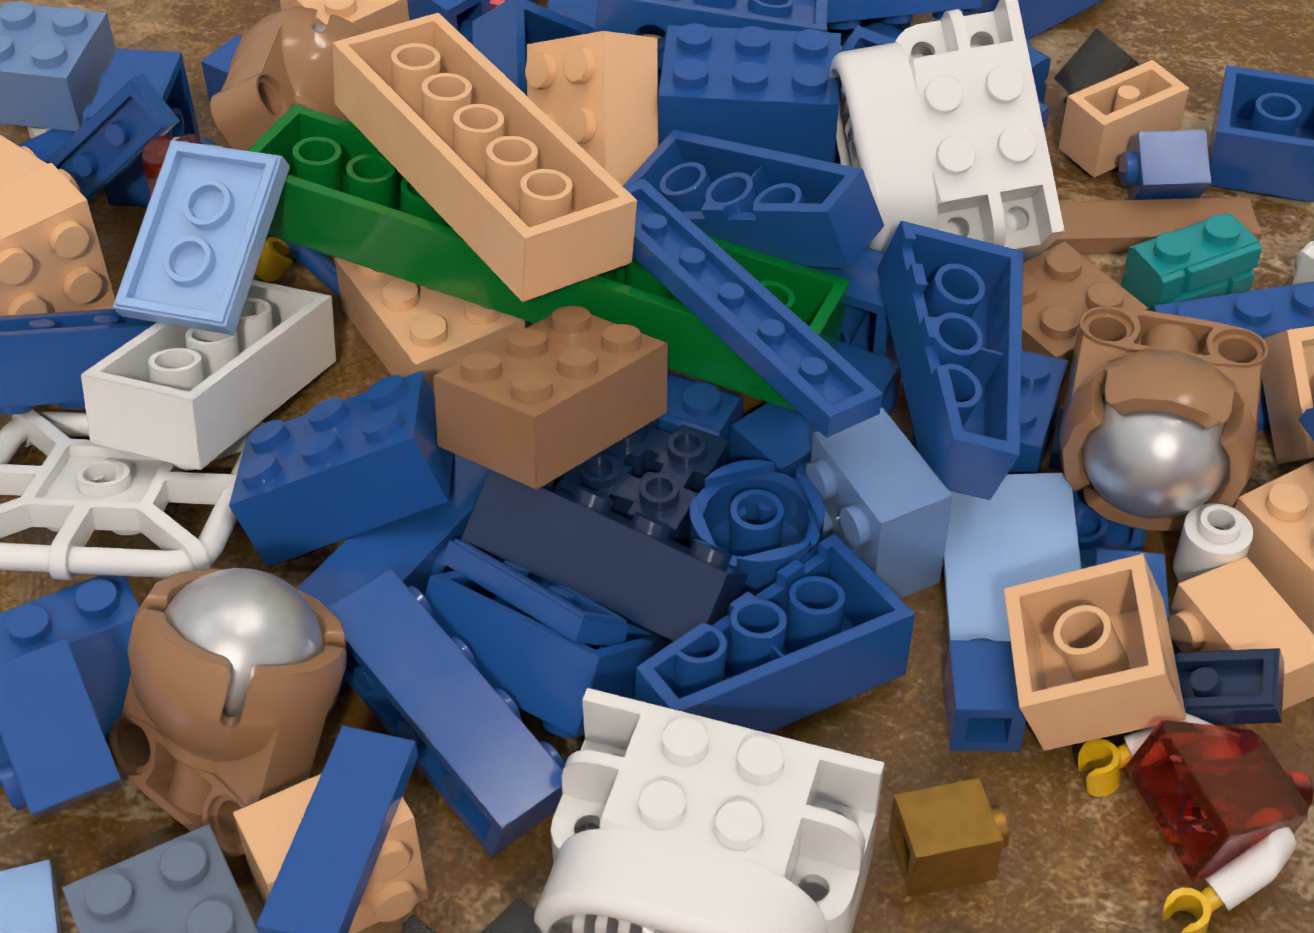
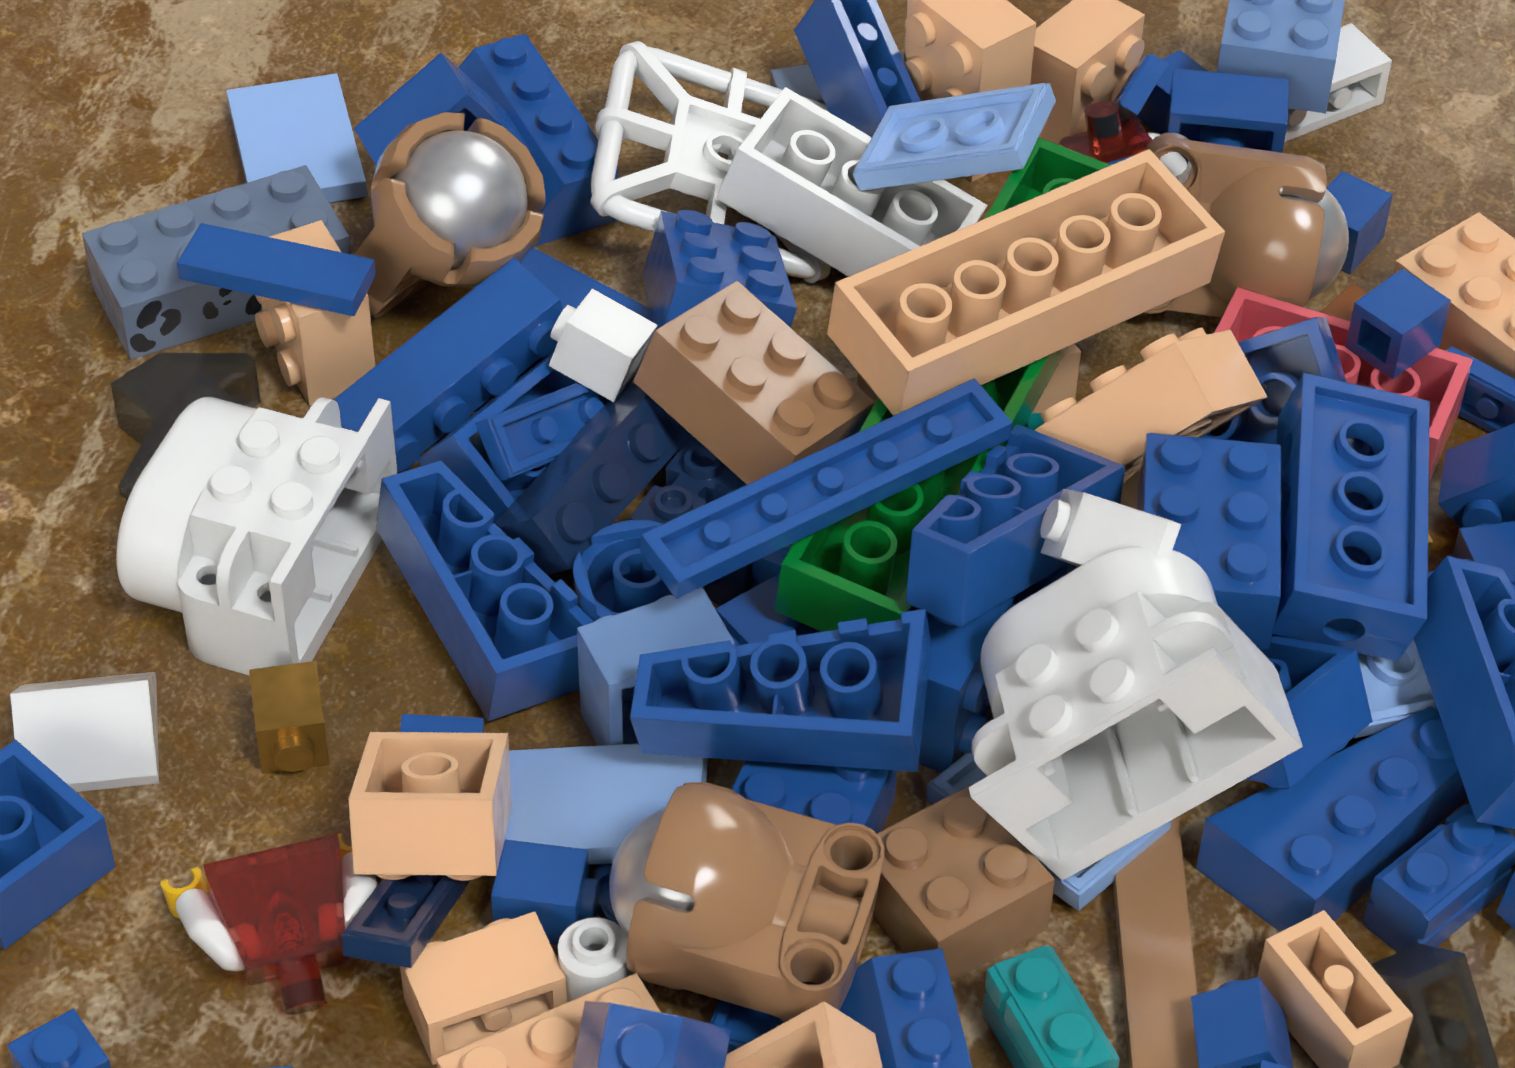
camera: 90 degrees right, 0 degrees up
(464, 529) = (600, 344): none -> white brick
(806, 104) = (1089, 526): none -> white slope

